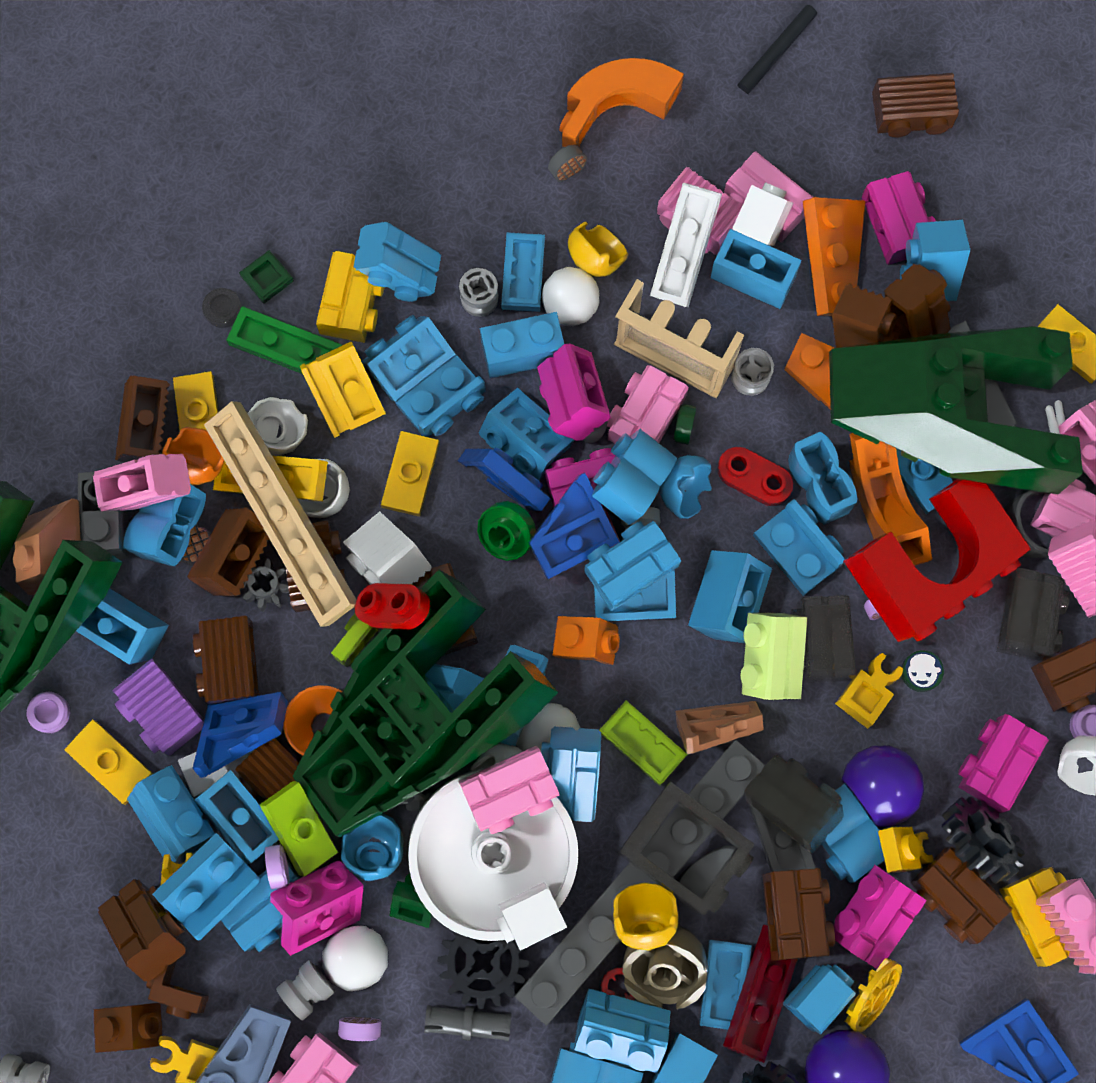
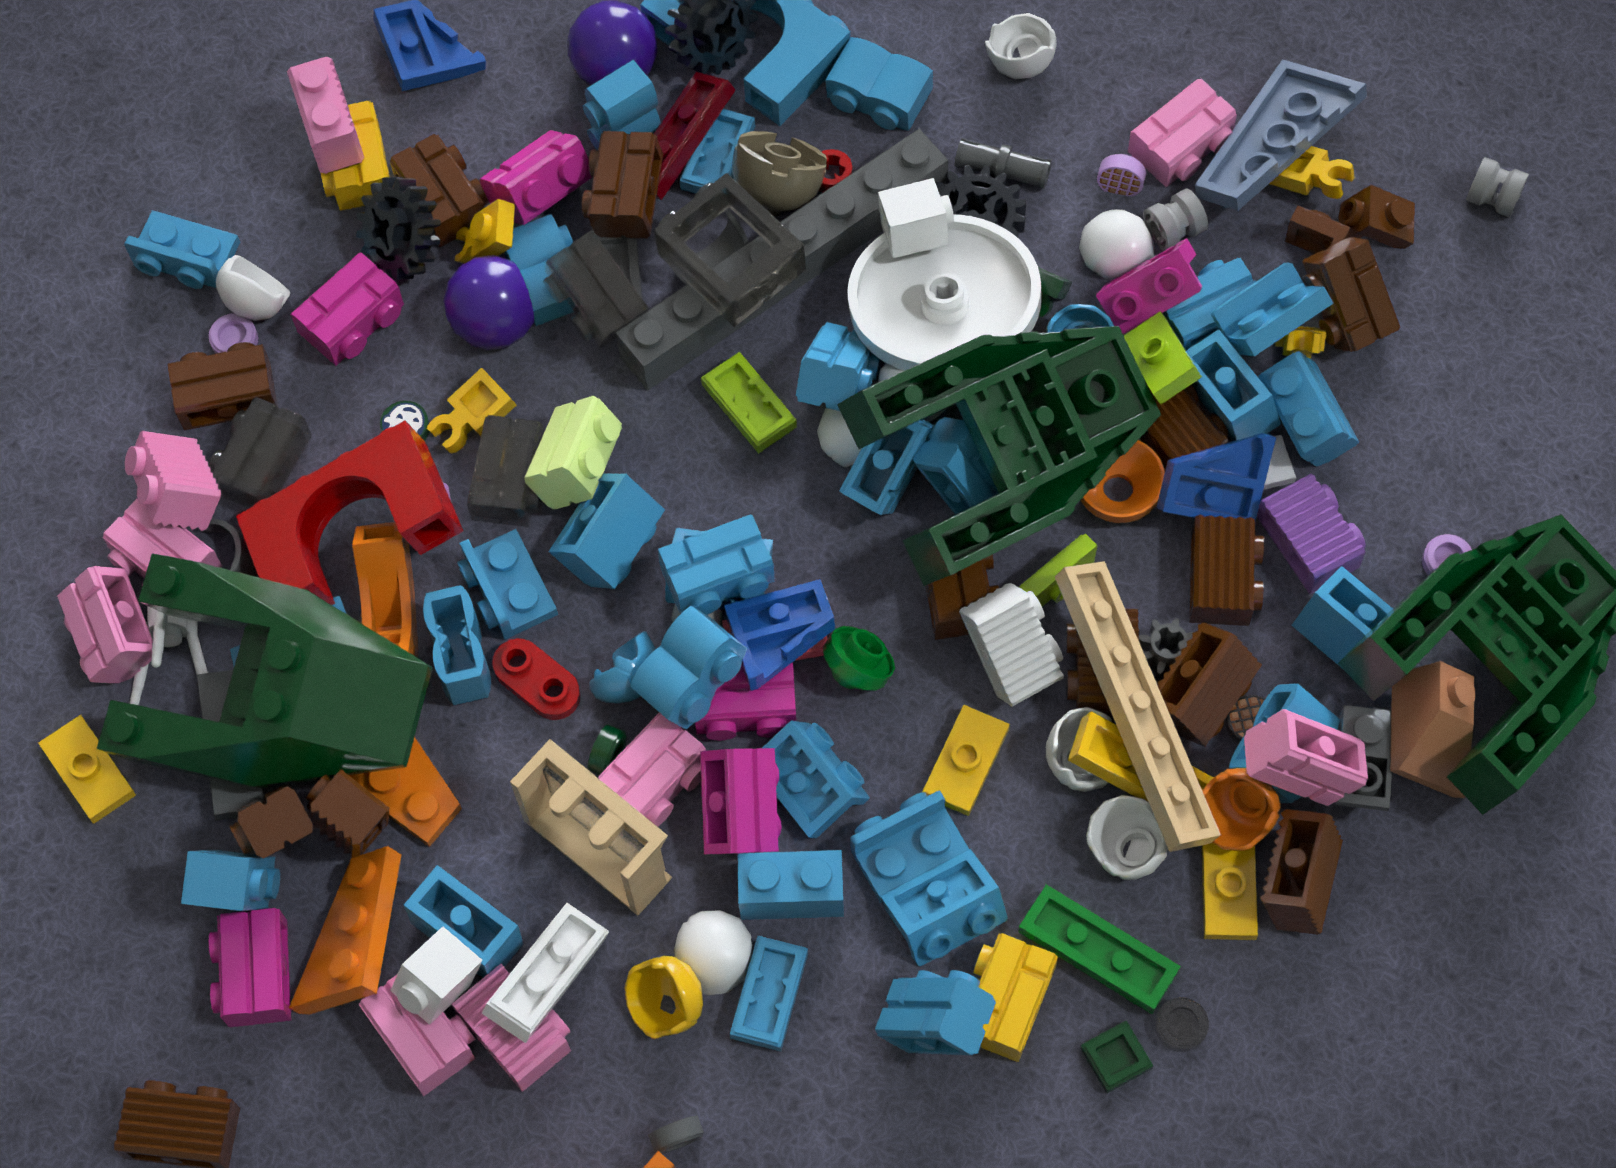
camera: 165 degrees left, 10 degrees down
(107, 760) = (1378, 492): yellow plate -> none
(277, 866) = (1189, 318): lavender tile -> none
(342, 389) = (1035, 866): yellow plate -> none
(392, 606) = (1018, 552): red plate -> none
(478, 300) = (832, 980): light grey wheel -> none
(497, 467) = (851, 720): blue wing -> none
(509, 789) = (912, 328): bright pink brick -> none
(586, 639) = (792, 522): orange bracket -> none
(622, 1031) = (839, 117): dark azure brick -> none
(645, 916) = (791, 188): yellow hair -> none
(717, 724) = (661, 395): nougat wing -> none
(753, 363) = (497, 790): light grey wheel -> none
(875, 996) = (561, 108): yellow wheel -> none

